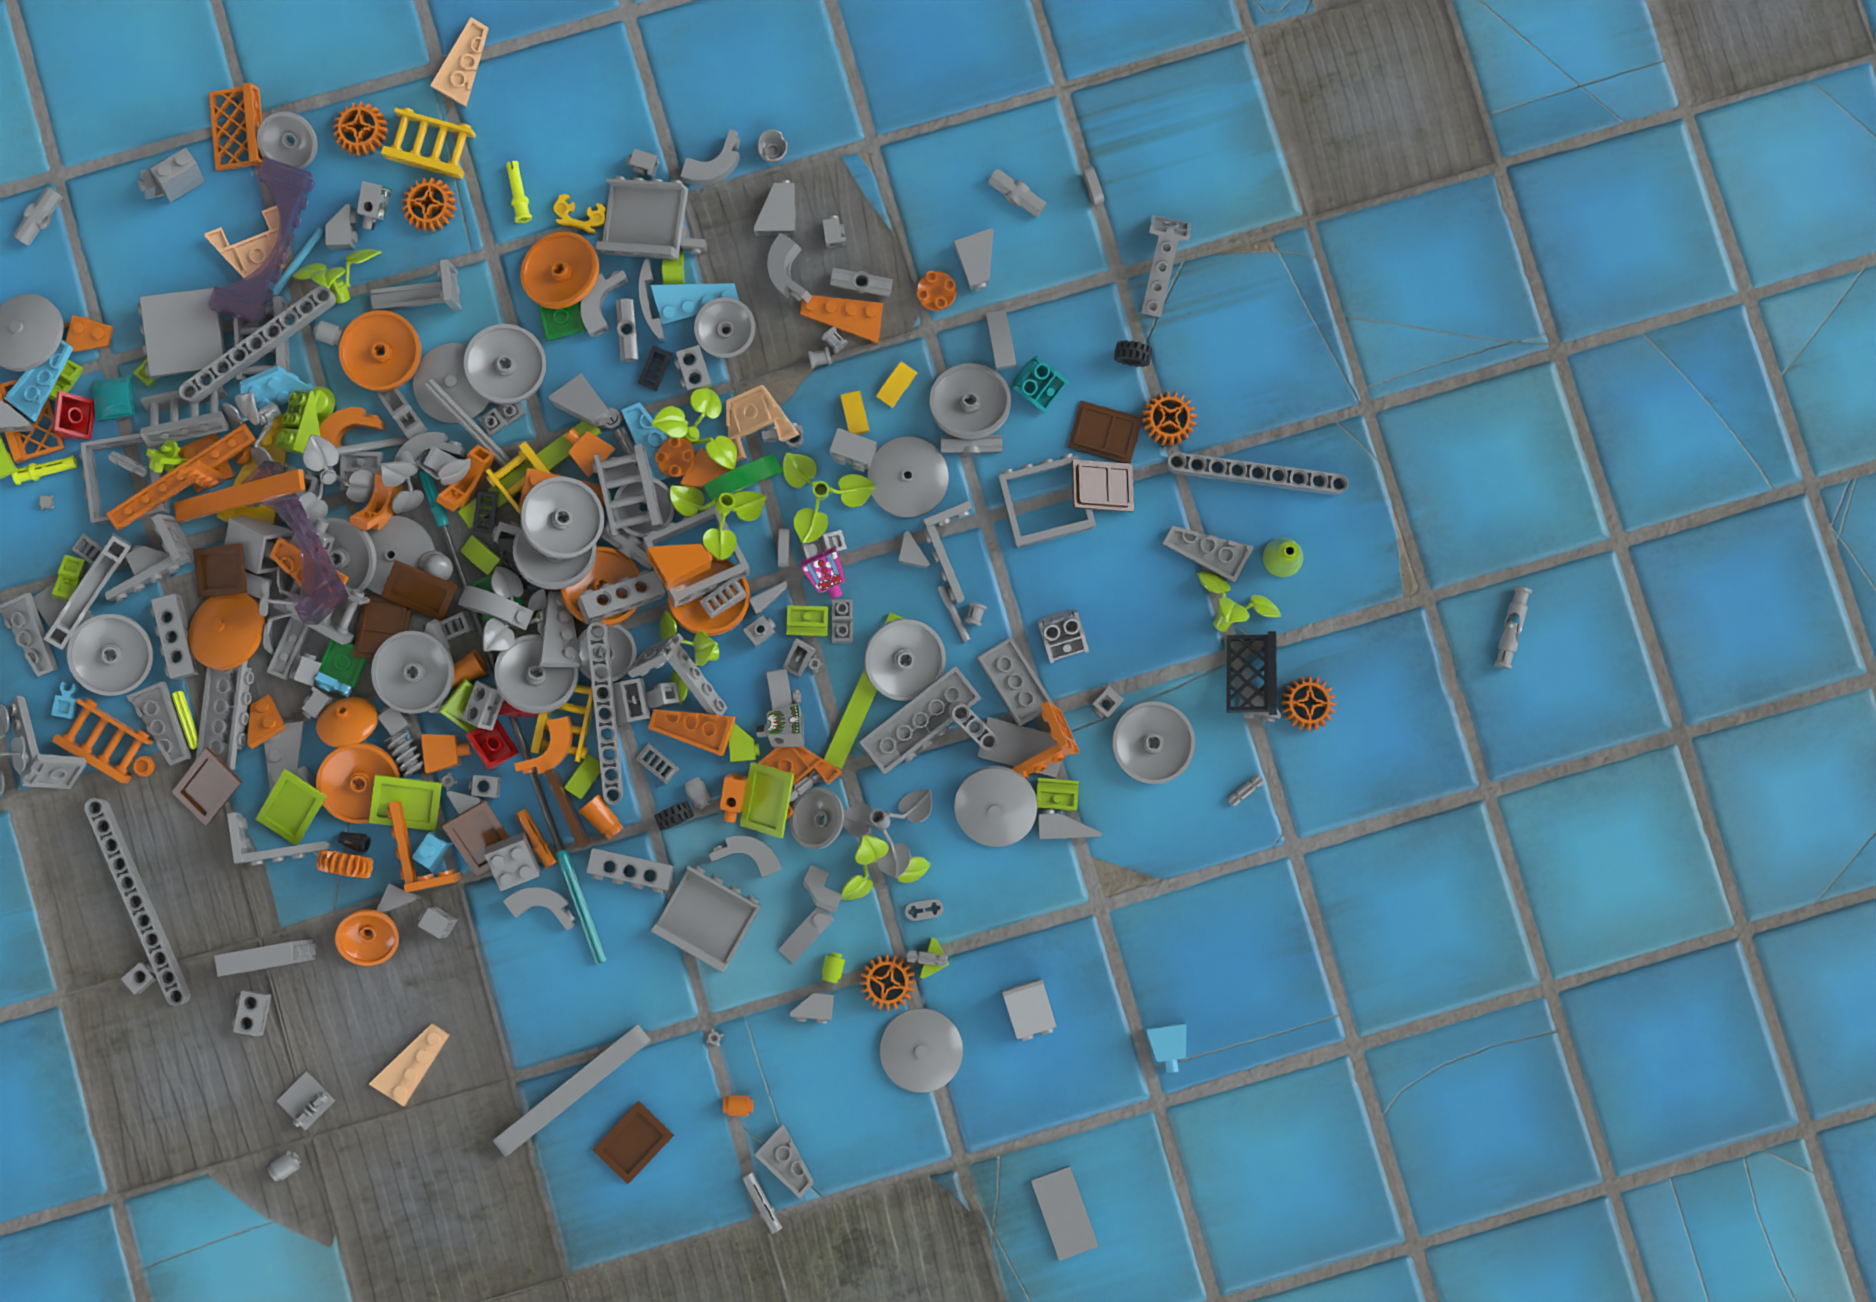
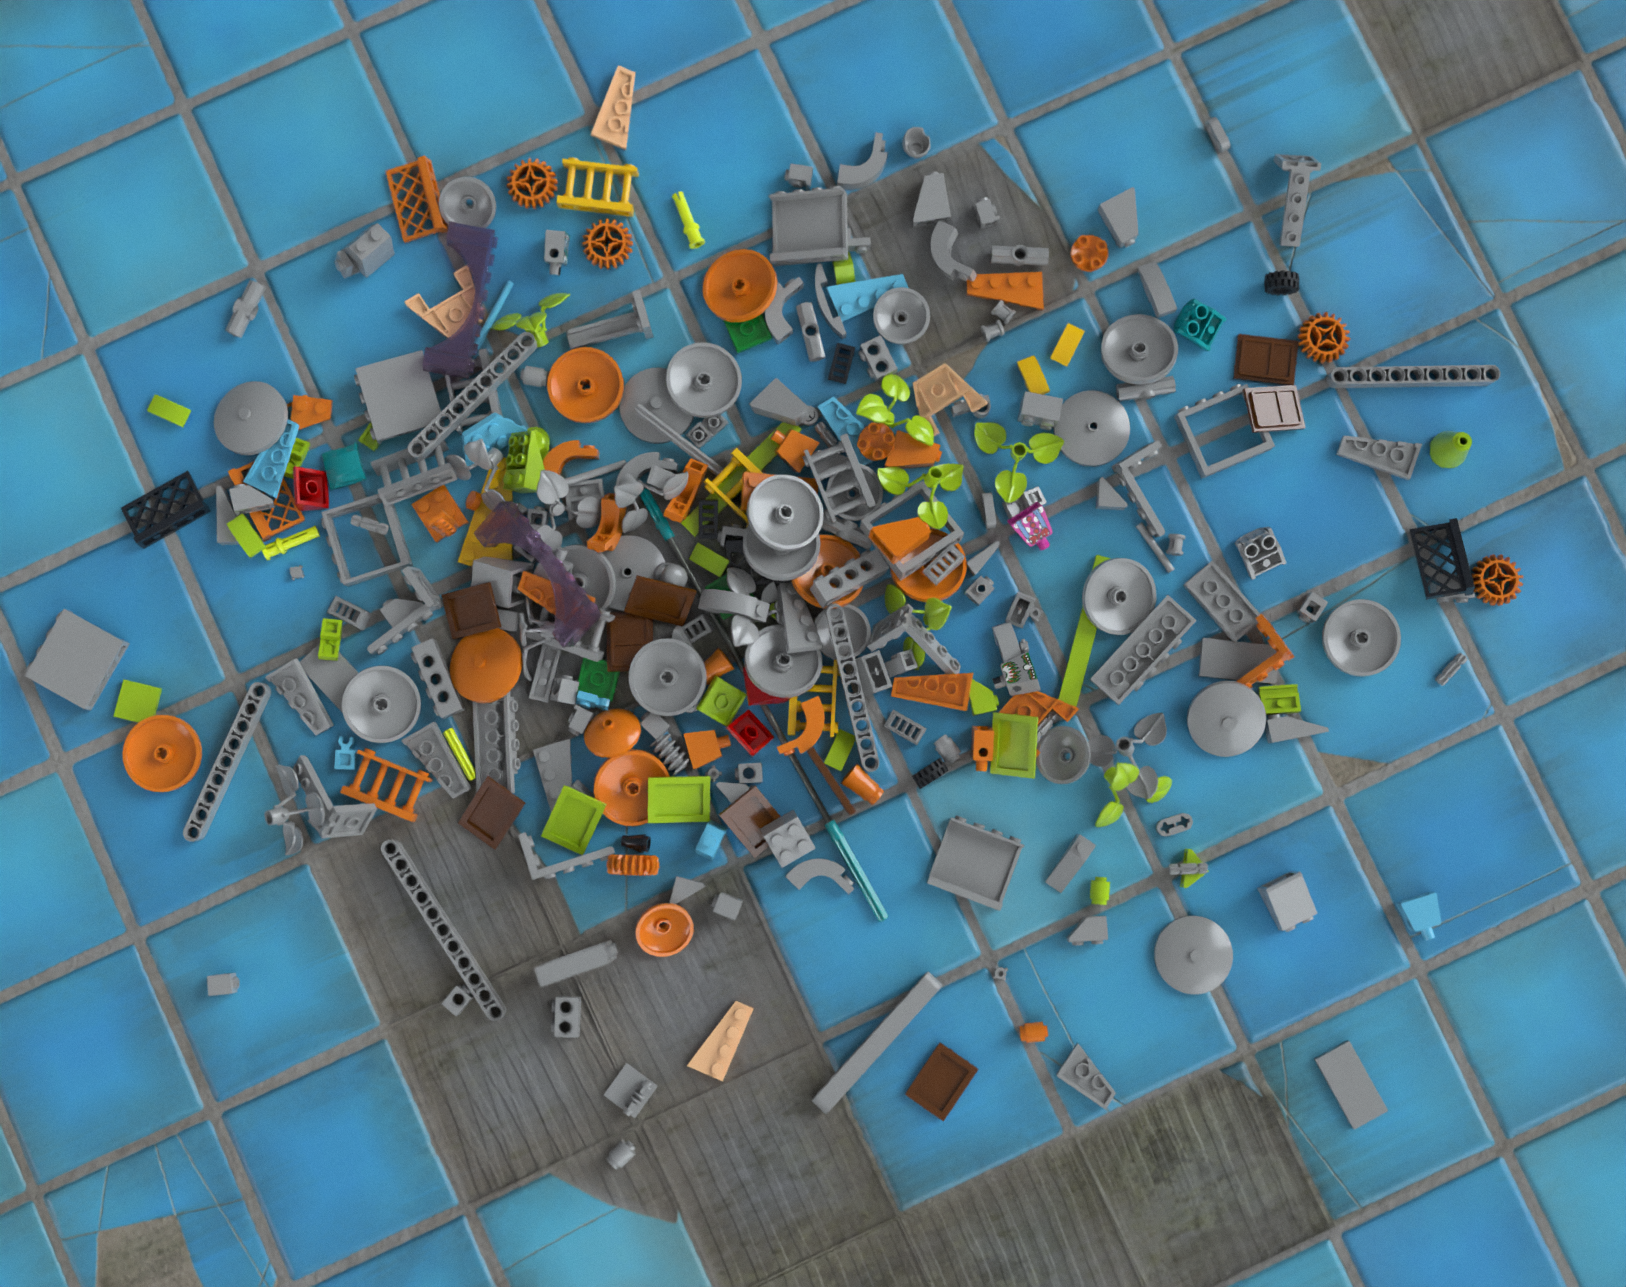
camera: 10 degrees left, 0 degrees up
(87, 591) = (348, 653): light grey arch -> none
(143, 766) = (428, 803): orange plate -> none
(166, 456) = (404, 513): lime hips -> none
(173, 482) = (419, 530): orange tile -> none
(239, 495) = (481, 538): orange tile -> none
(263, 721) = (534, 744): orange wing -> none
(340, 230) = (529, 279): light grey slope -> none
(402, 412) = (615, 439): light grey slope -> none
(404, 852) = (710, 869): orange bracket -> none
(483, 706) = (738, 698): light grey brick -> none
(535, 838) = (804, 814): orange pin -> none
(562, 209) = (730, 230): yellow helmet -> none
(599, 858) = (928, 828): light grey brick -> none
(743, 476) = (941, 451): green slope -> none
(762, 854) = (1017, 796): light grey arch -> none
(762, 1203) = (1070, 1119): light grey pin -> none
(807, 621) = (1021, 574): lime plate -> none
(821, 896) = (1080, 826): light grey tile -> none
(842, 621) = (1053, 570): light grey slope -> none
(870, 977) = (1152, 905): orange gear -> none
(977, 734) = (1202, 651): light grey beam -> none
(1017, 193) = (1148, 152): light grey piece -> none
(1231, 611) = (1418, 504): lime plant -> none

